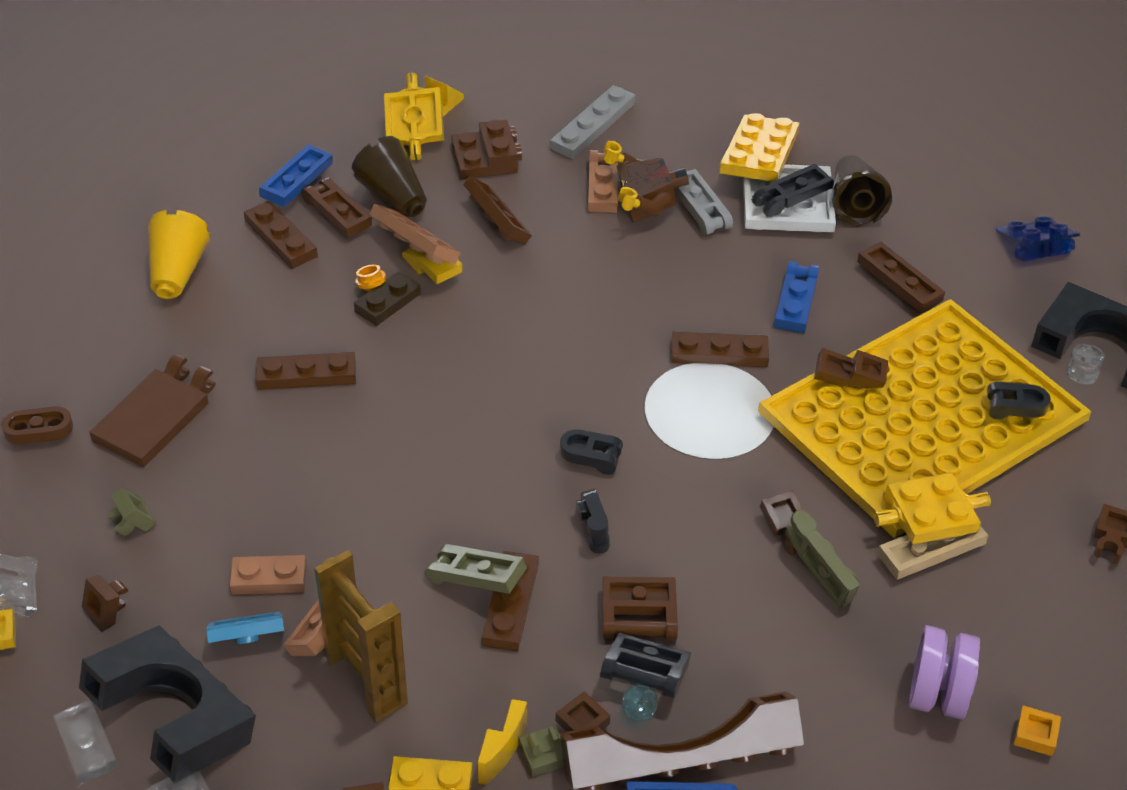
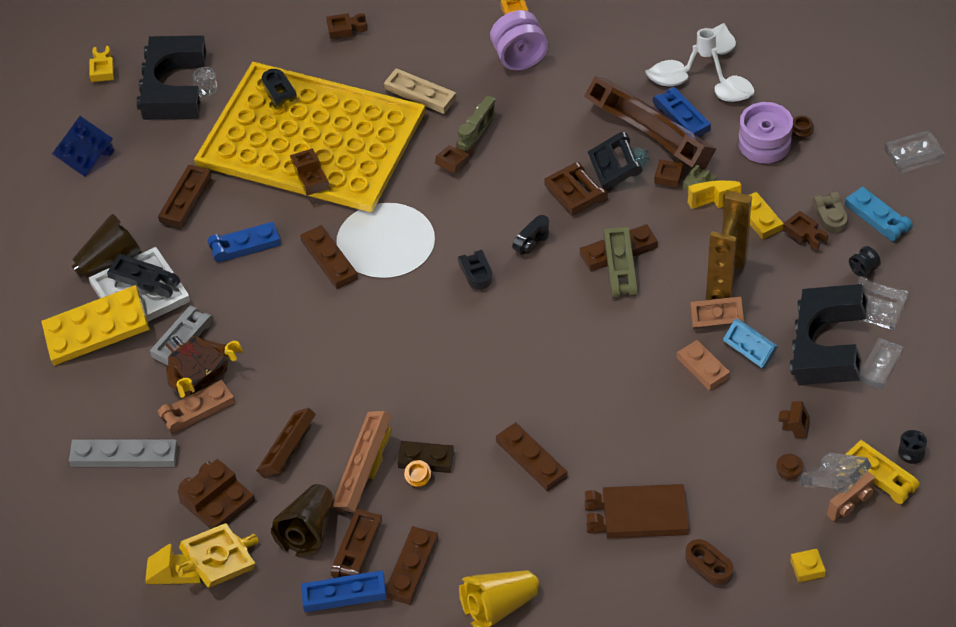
camera: 120 degrees left, 5 degrees up
(62, 563) = (789, 466): none -> reddish brown plate
(130, 512) = (726, 454): olive tile -> none
(932, 508) = (400, 91): yellow plate -> none

